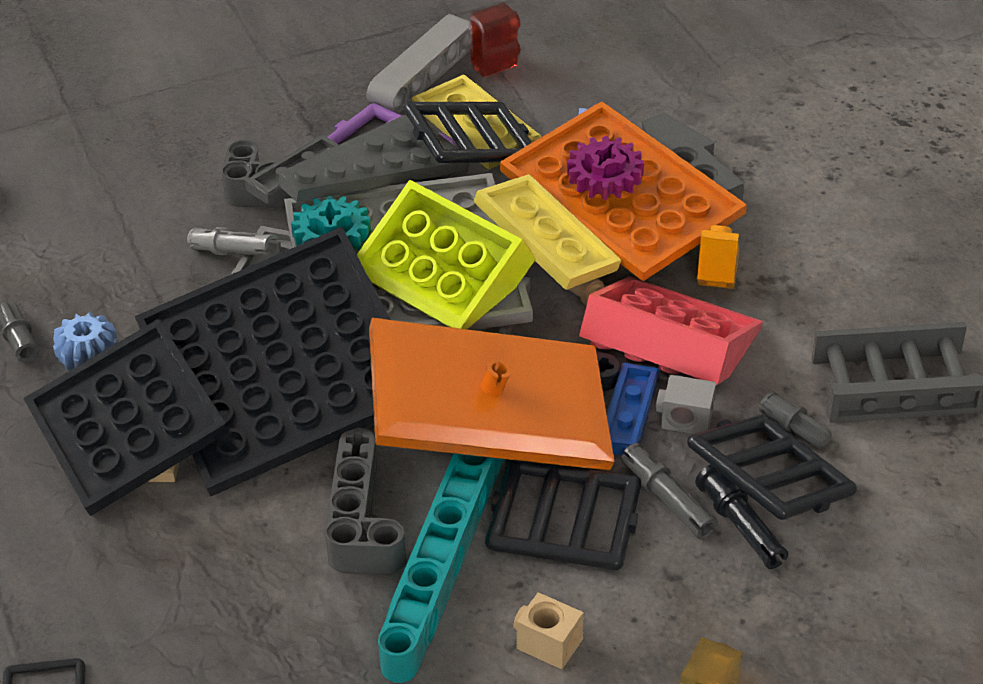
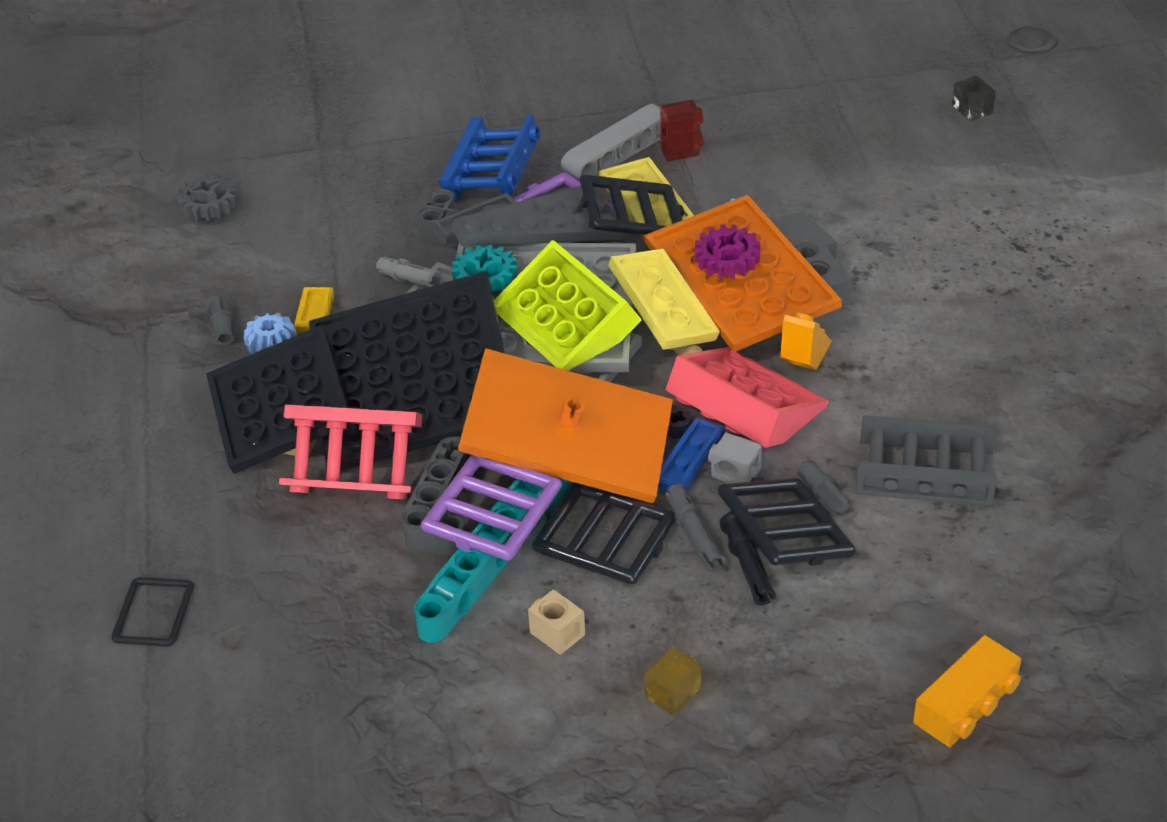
camera: 15 degrees right, 0 degrees up
(125, 301) = (314, 304): none -> yellow tile
(214, 431) = (337, 421): none -> coral fence
(256, 92) = (473, 147): none -> blue fence
(416, 550) = (520, 529): none -> medium lavender bar

